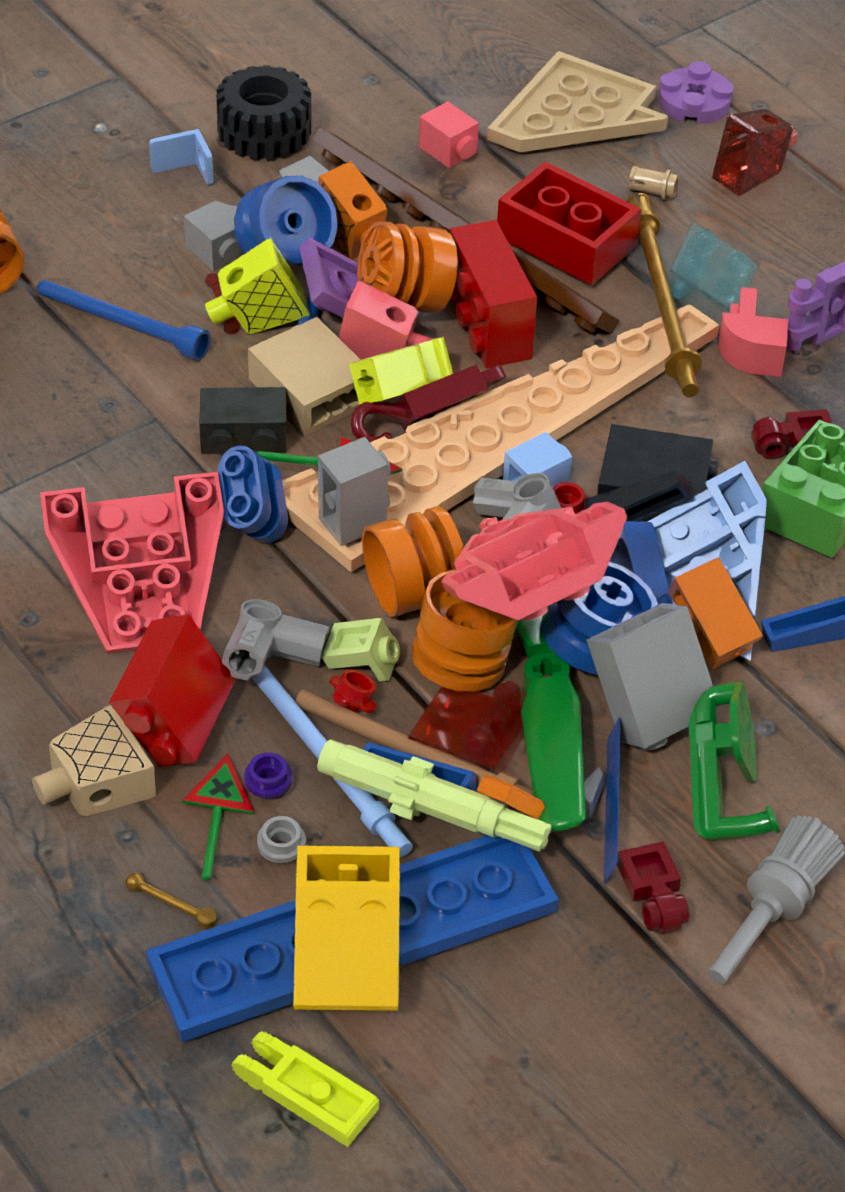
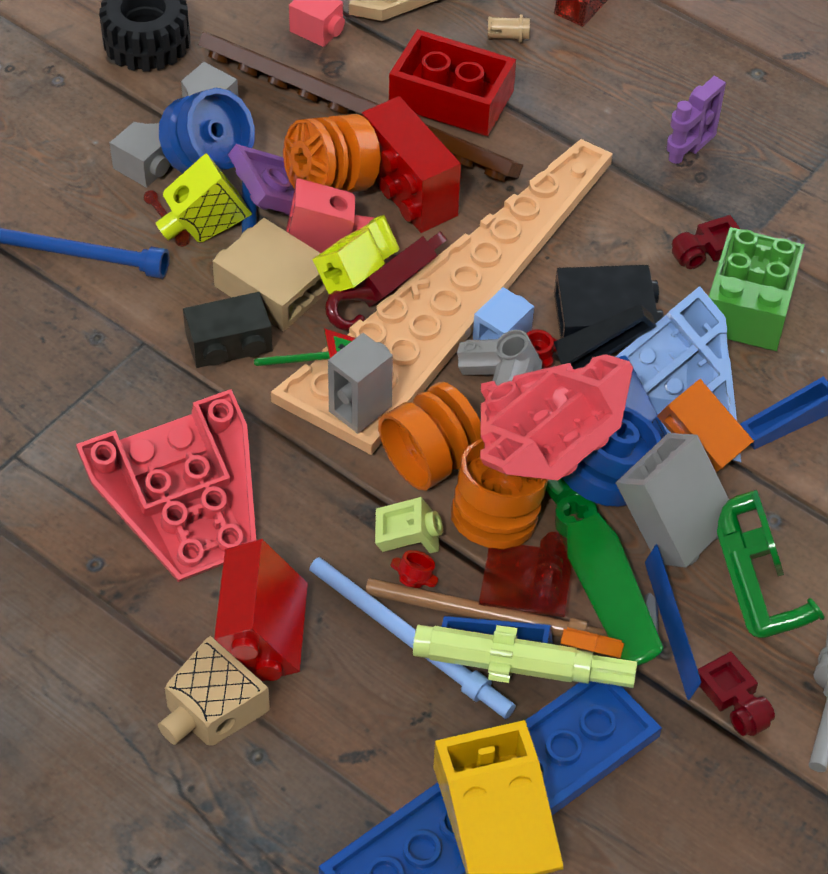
camera: 15 degrees left, 5 degrees up
(181, 151) = (82, 76): light blue bracket -> none
(205, 917) = (356, 817): pearl gold hinge -> none
(221, 791) = (330, 693): piece -> none
(252, 494) = (265, 402): blue brick -> none
(267, 632) = (321, 532): light grey piece -> none
(268, 766) = (366, 658): dark purple plate -> none
(276, 830) = (399, 717): light grey plate -> none
(355, 206) = (268, 106): orange torso -> none
(682, 361) = (598, 196): pearl gold bar -> none
(710, 268) = (586, 101): clear light blue hinge -> none
(752, 341) = (644, 163): coral brick -> none

